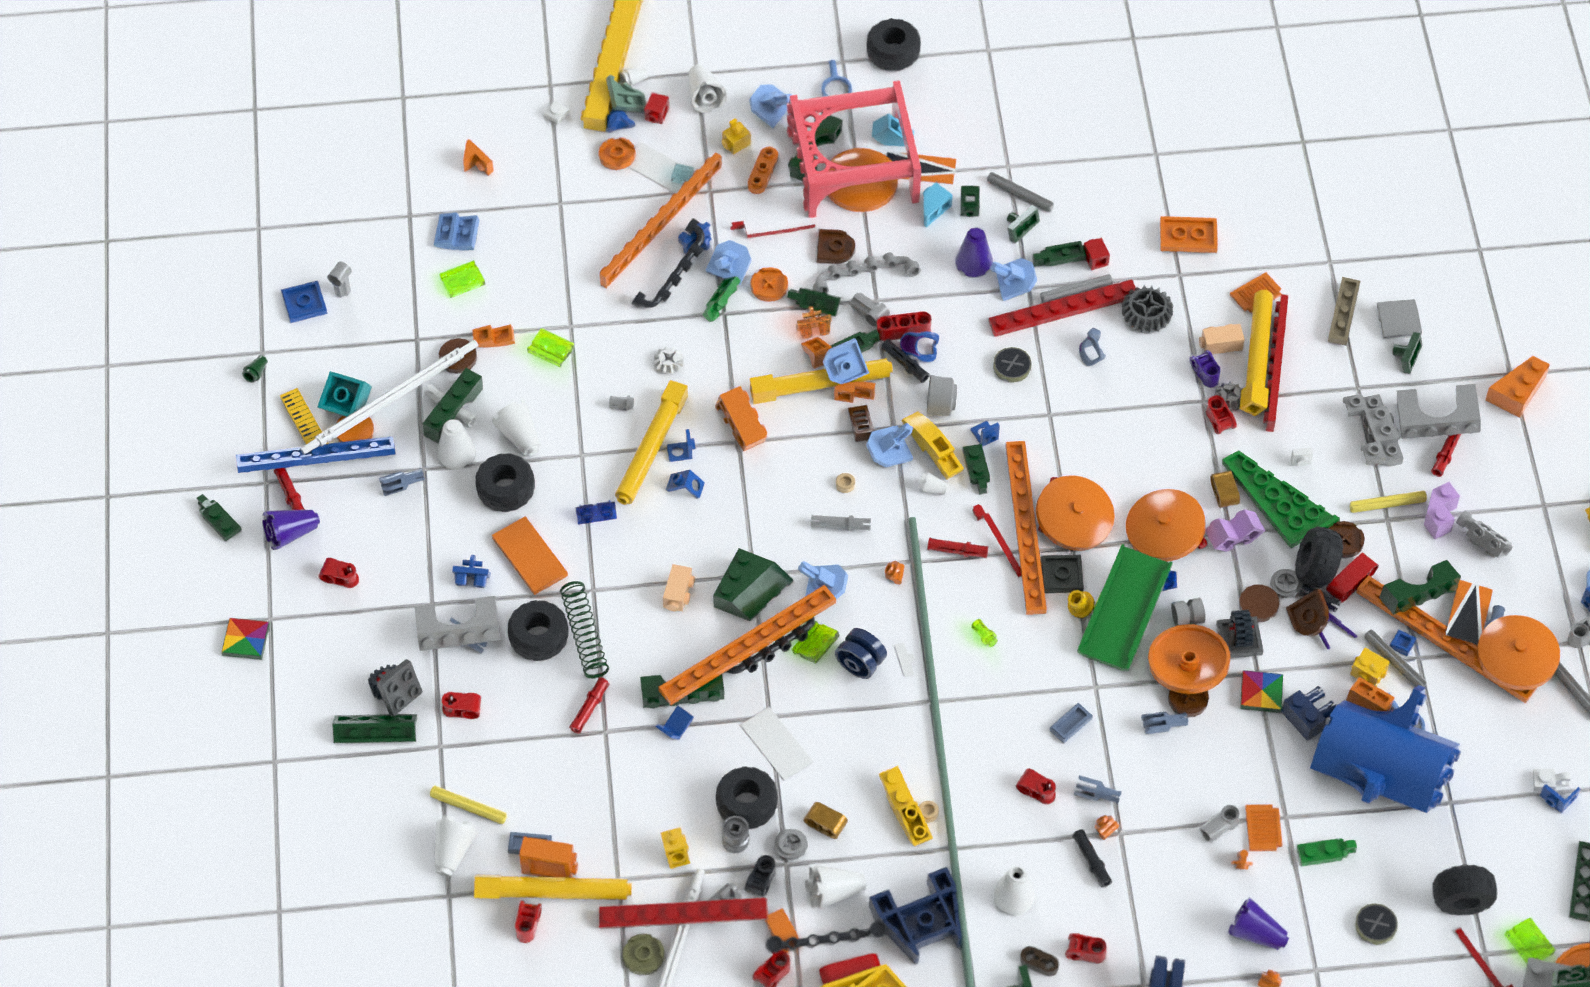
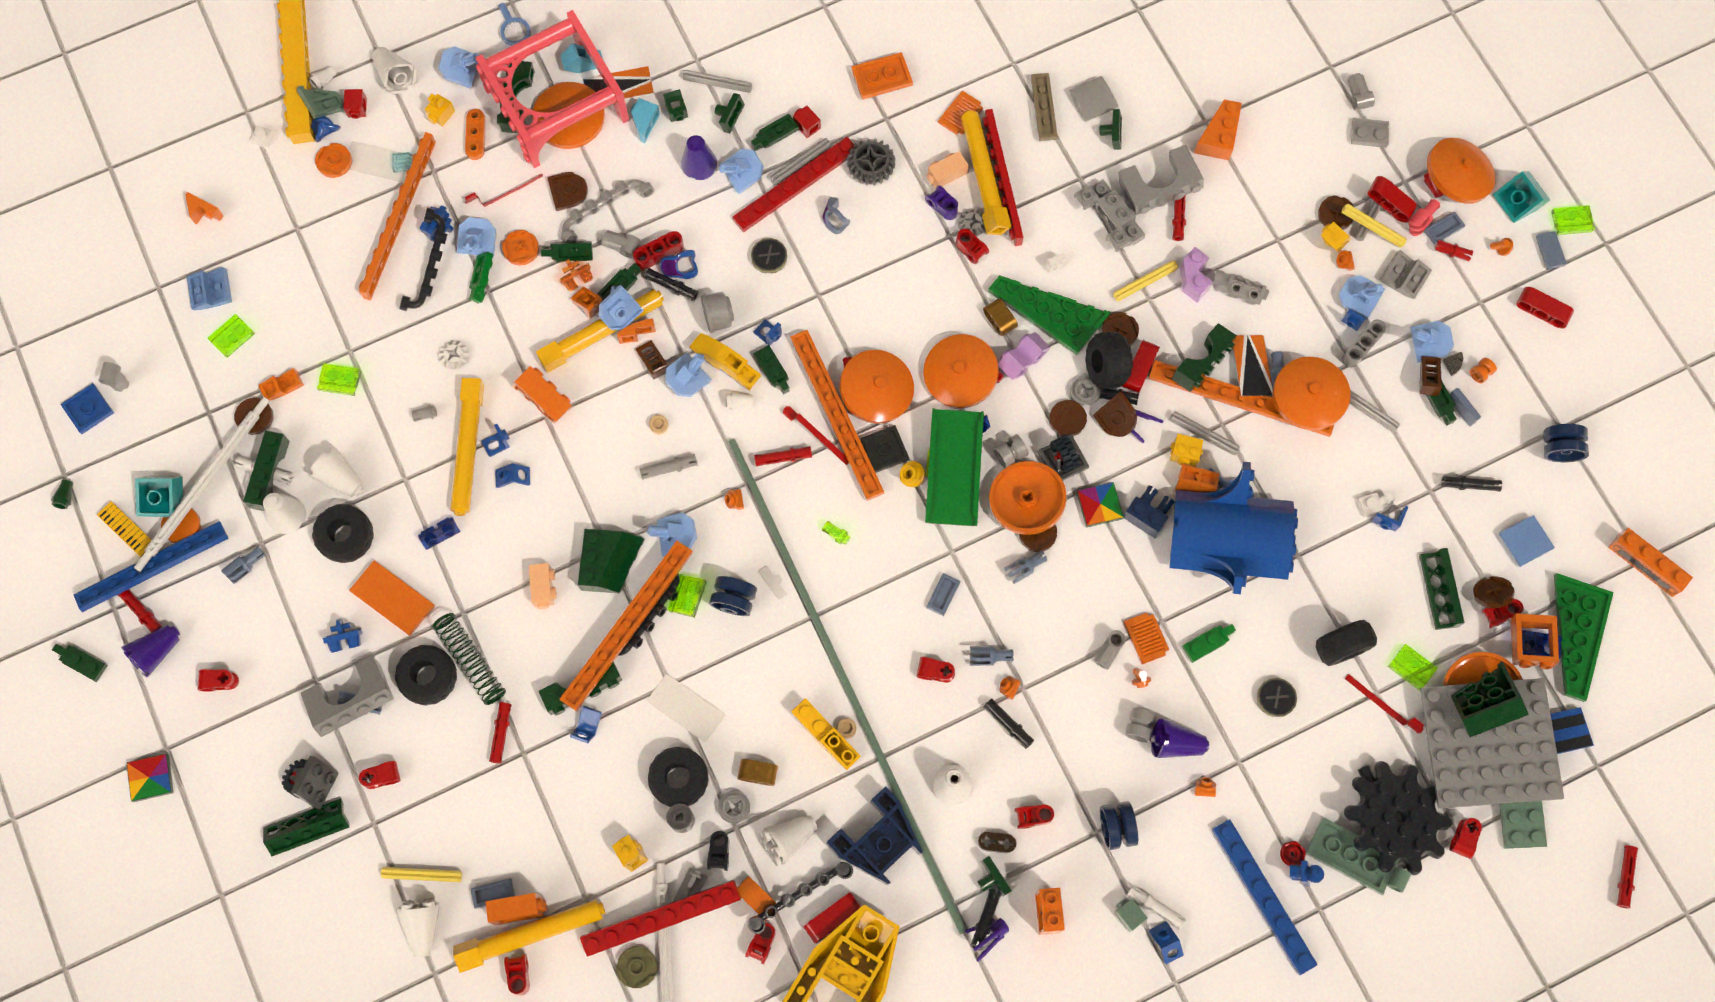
camera: 20 degrees left, 15 degrees up
(1225, 901) = (1141, 725): none -> light grey wheel
(1403, 642) = (1205, 414): blue tile -> none

